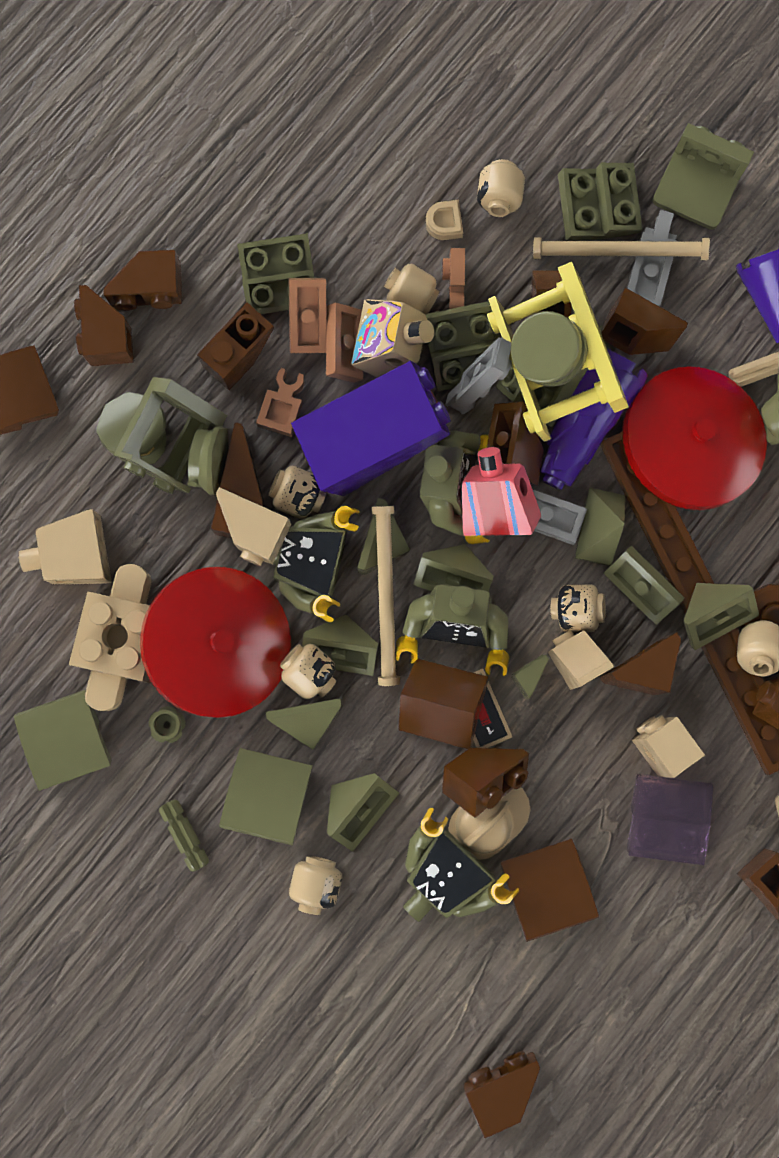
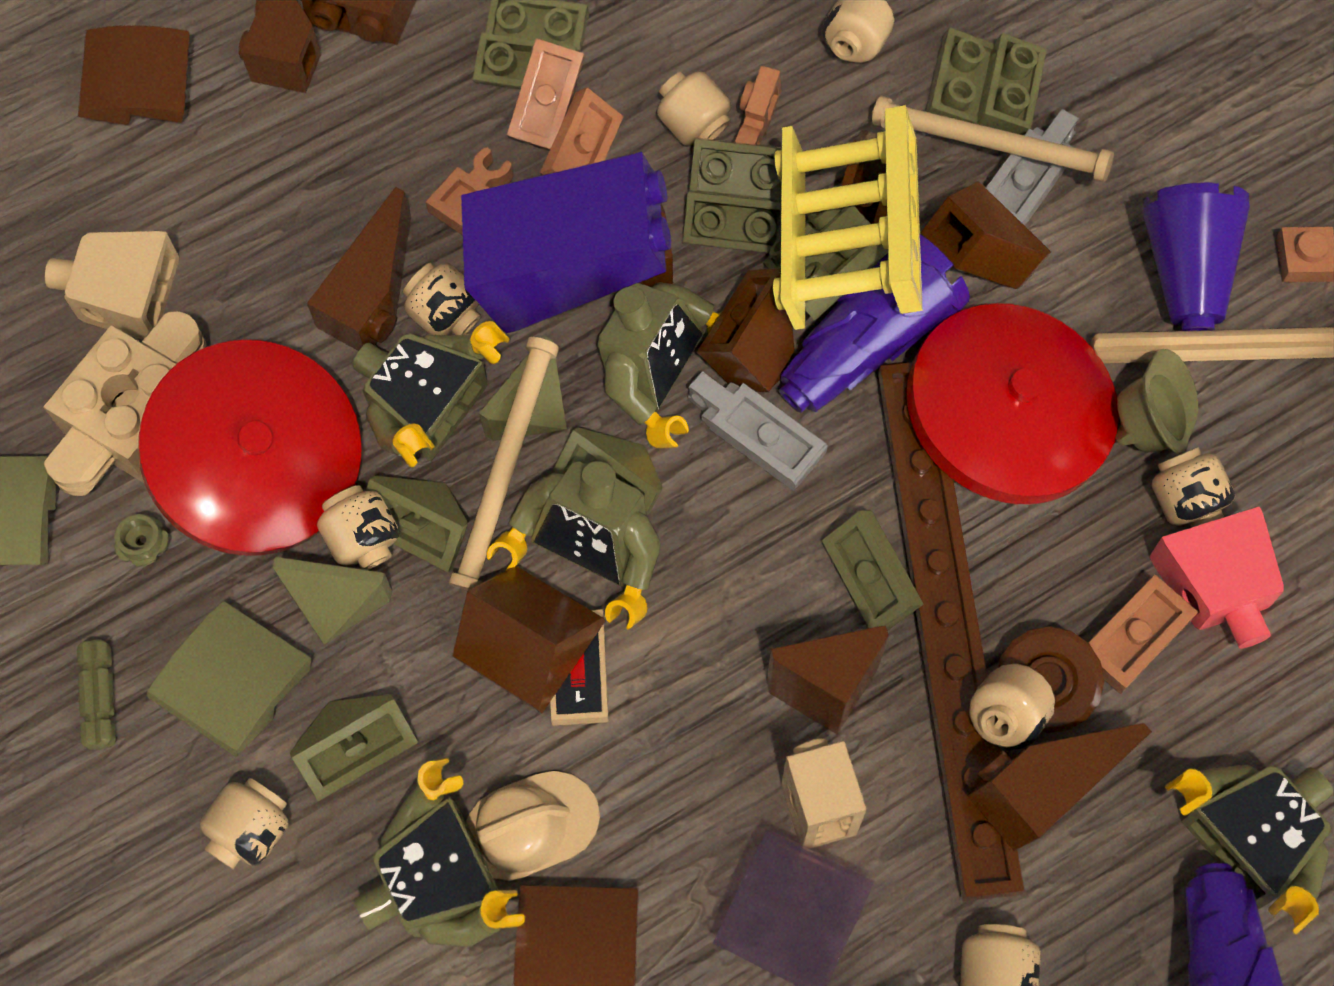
camera: 20 degrees right, 15 degrees down
(115, 420) = (267, 164): olive hat -> none
(201, 416) = (360, 175): olive panel -> none
(208, 459) = (339, 216): olive hat -> none
(236, 346) = (437, 104): reddish brown slope -> none
(253, 527) = (360, 311): tan slope -> none
(389, 336) = (649, 128): tan torso -> none
(445, 220) = (772, 45): tan tile -> none
(480, 376) = (733, 232): light grey hinge -> none
(484, 776) = (544, 752): reddish brown slope -> none
(498, 498) = (702, 376): coral torso -> none
(529, 675) = (665, 637): olive slope -> none
(548, 349) = (834, 197): olive head -> none
(578, 658) = (739, 638): tan slope -> none
(579, 608) = (768, 571): tan head -> none
(601, 527) = (840, 480): olive slope -> none
(702, 176) = (1134, 87): olive bracket -> none
(718, 610) = (964, 636): olive slope -> none

